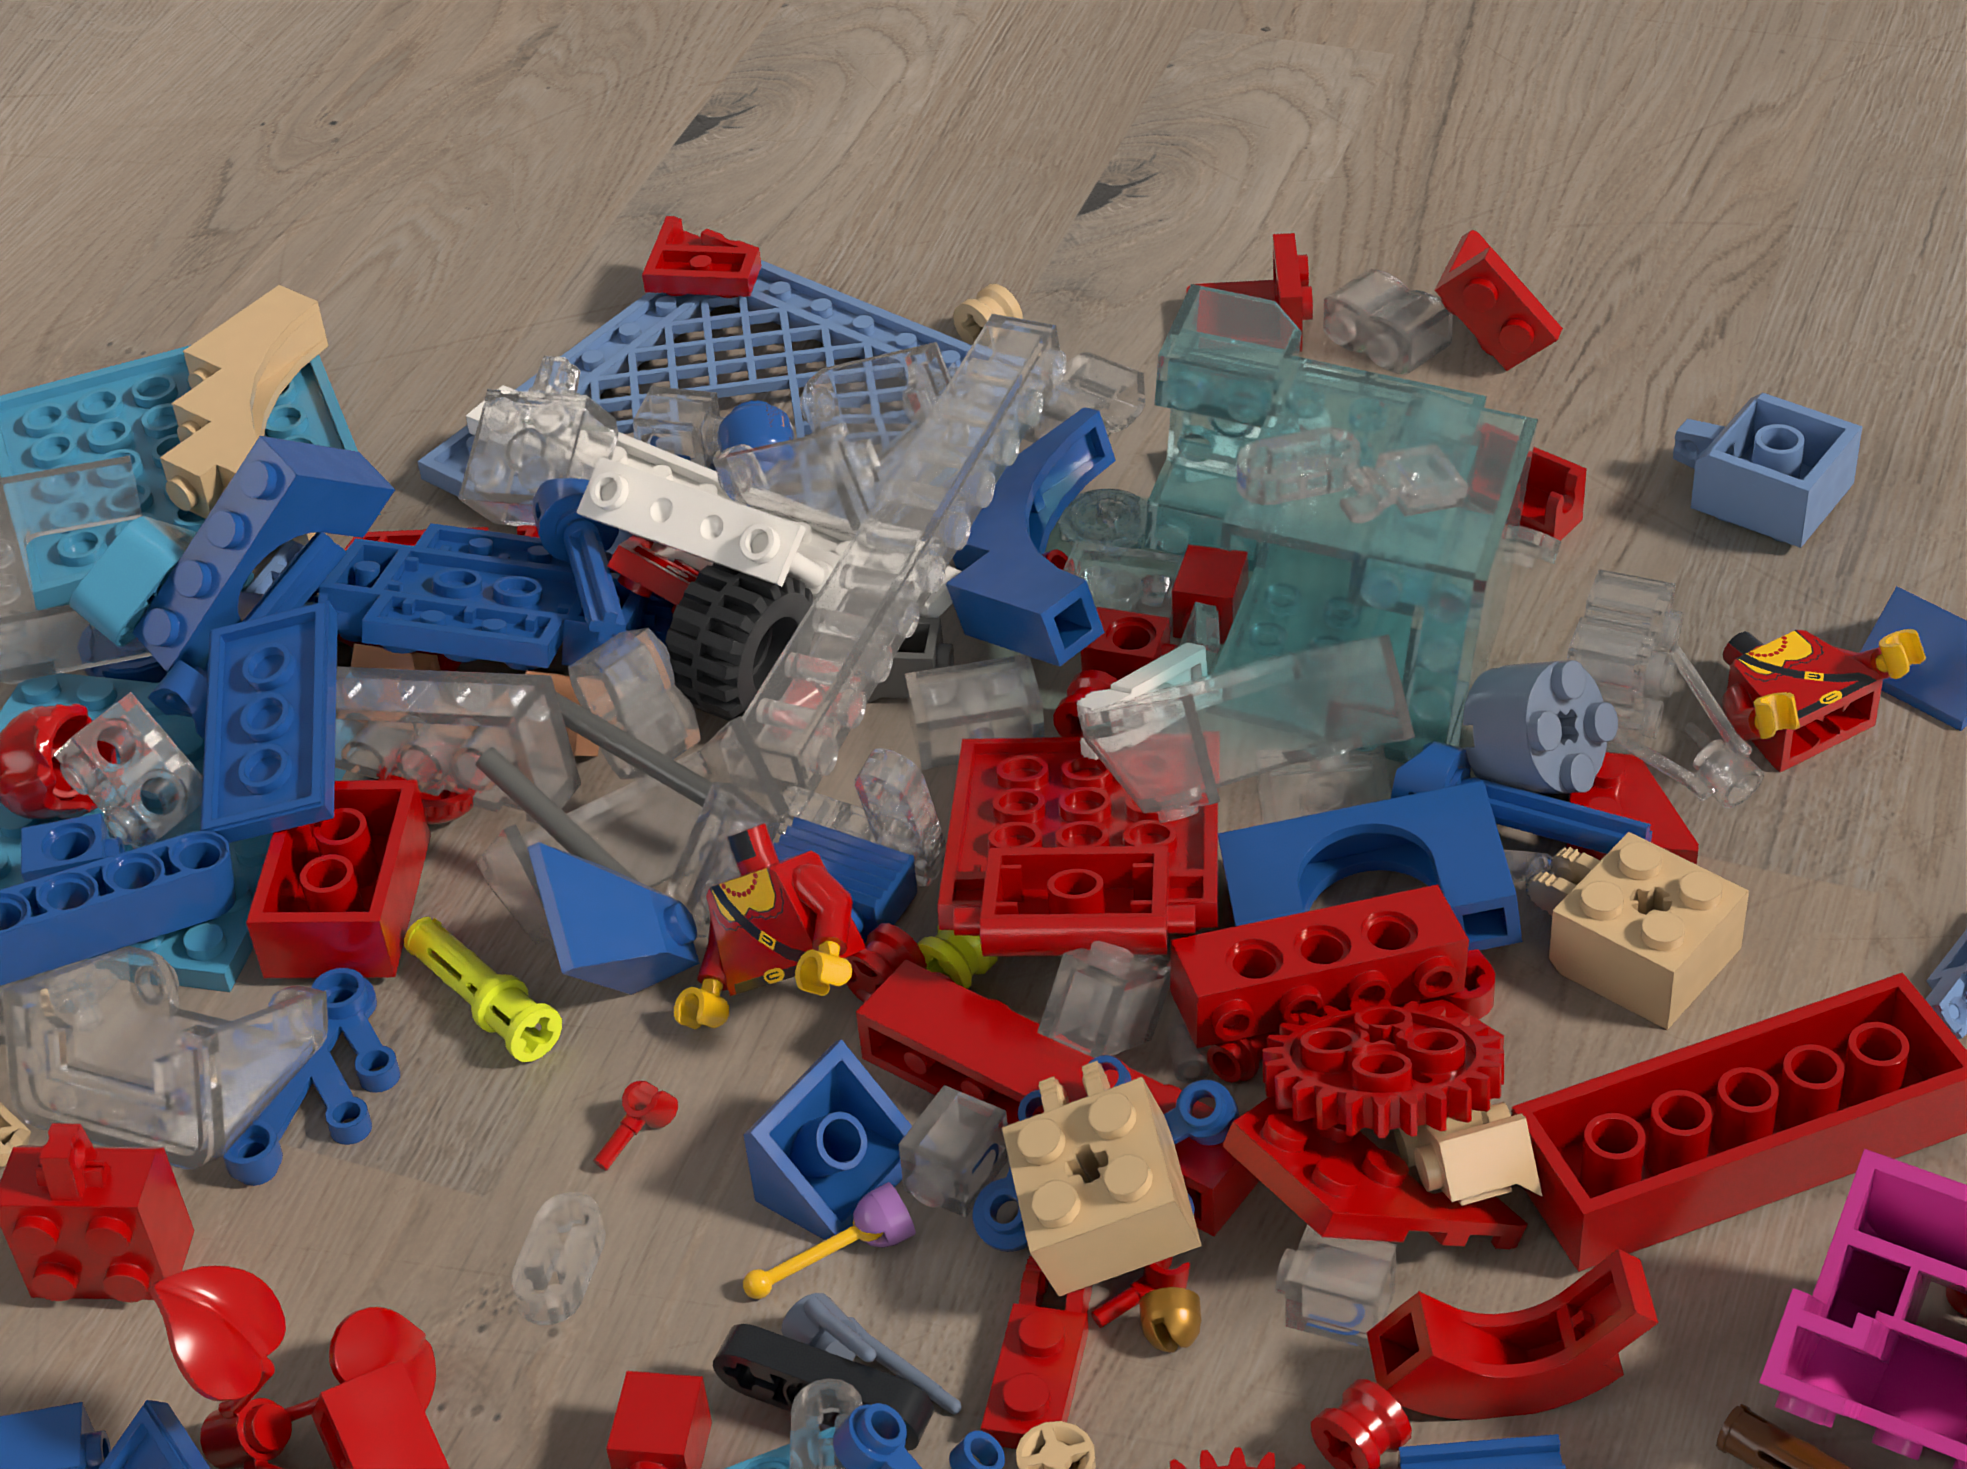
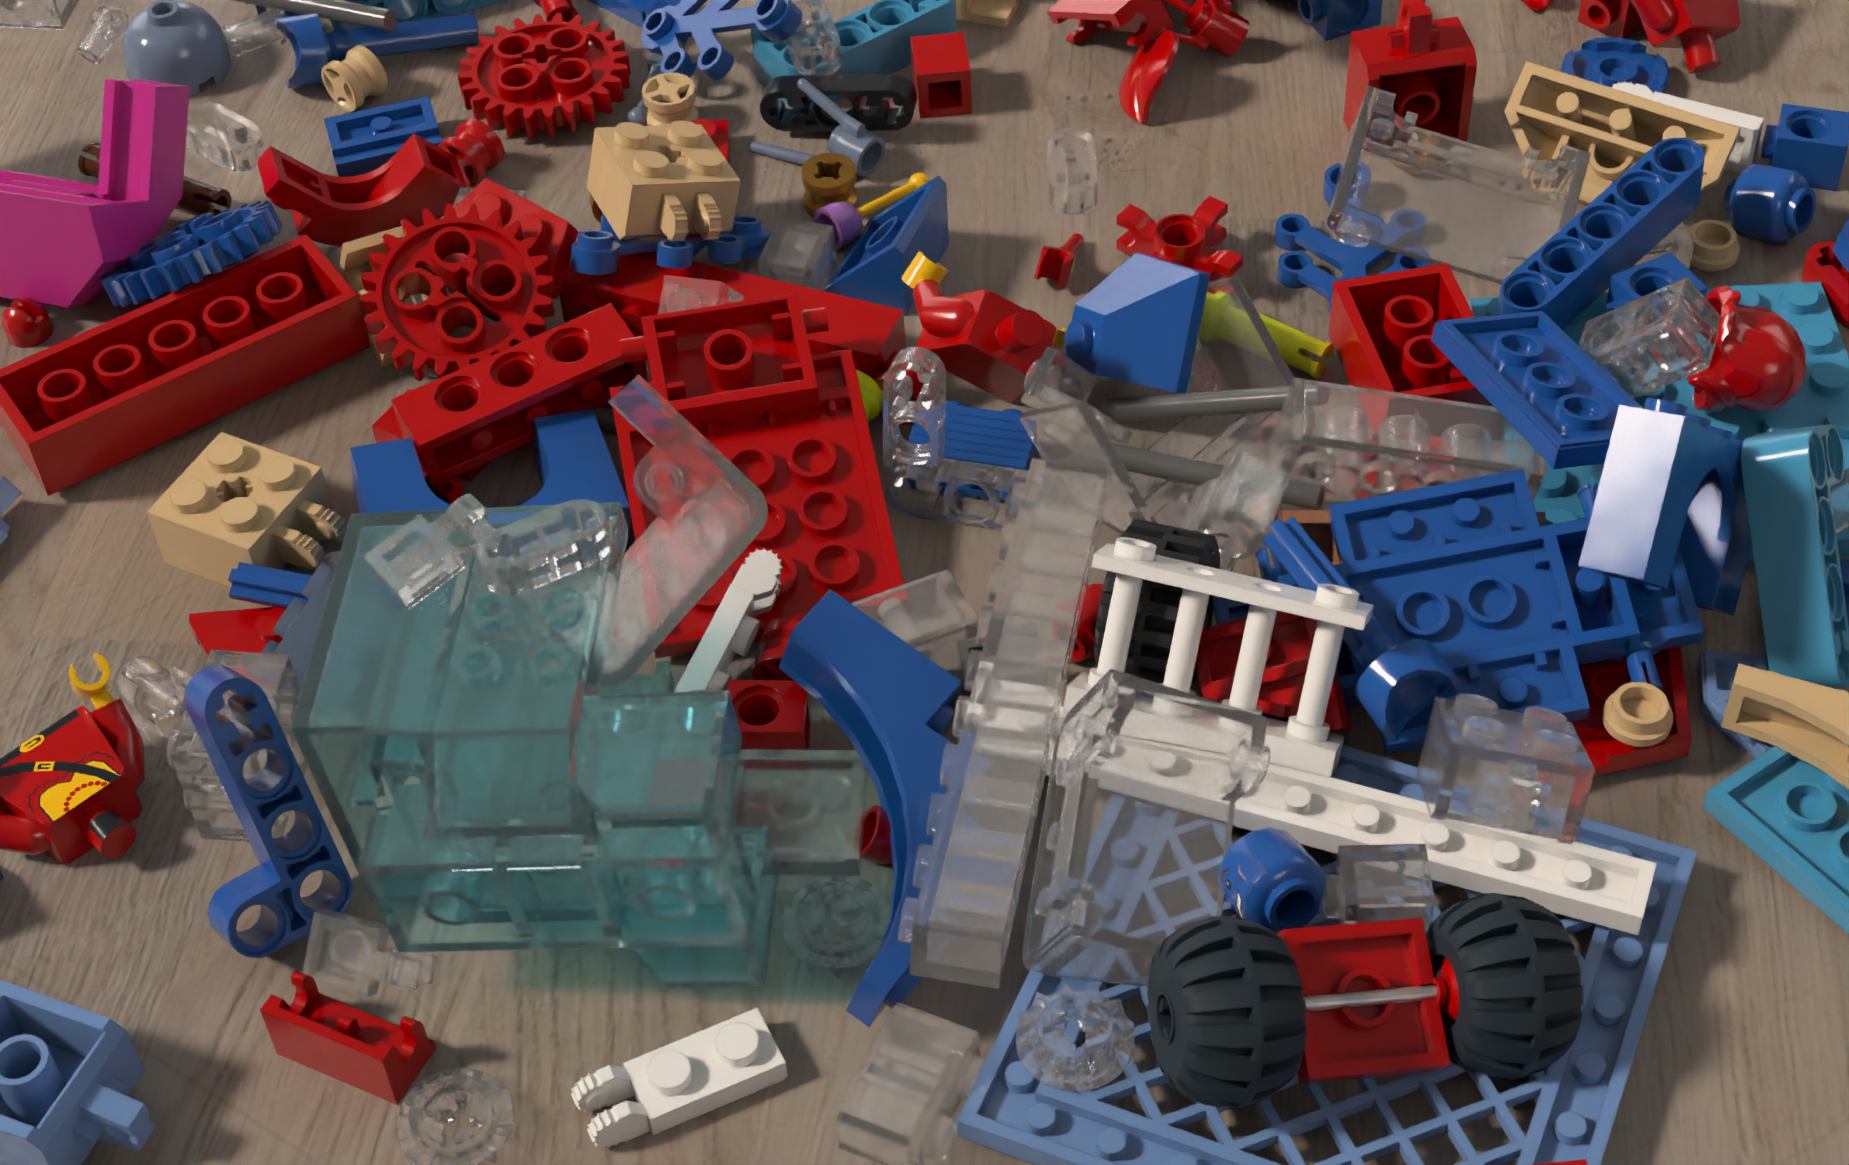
camera: 165 degrees right, 5 degrees up
(395, 525) = (1638, 714): none -> tan plate
(500, 1083) = (1181, 238): none -> red pin
(833, 327) = (1351, 1001): none -> black plate
(872, 1296) = (828, 180): none -> pearl gold wheel
(1588, 532) = (258, 804): none -> blue beam
(1699, 1300) = (193, 252): none -> blue gear

